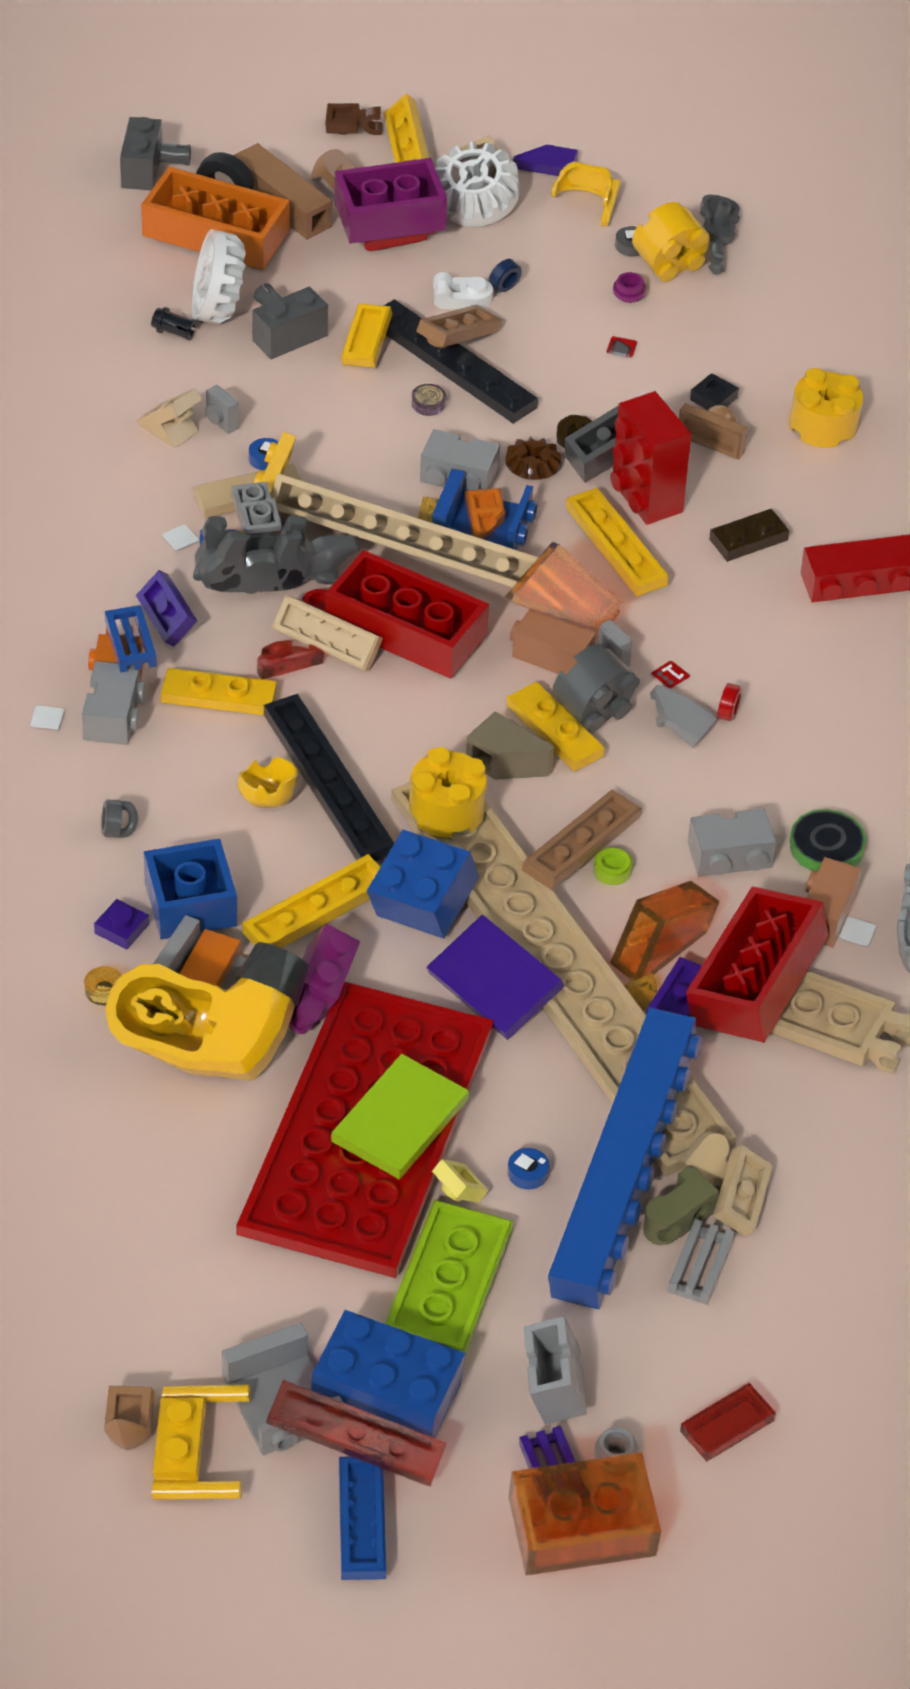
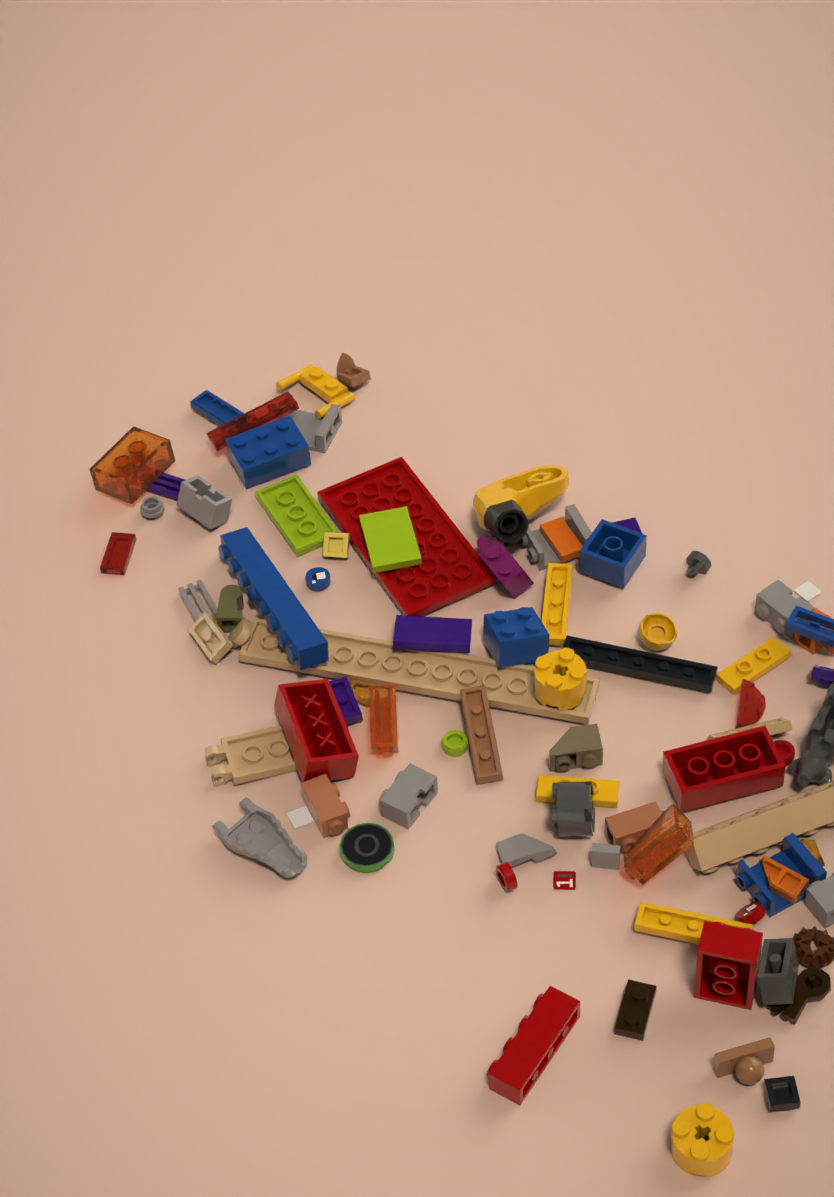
camera: 140 degrees right, 0 degrees up
(99, 983) = (594, 504): clear yellow tile -> none
(553, 510) = (751, 913): none -> red tile

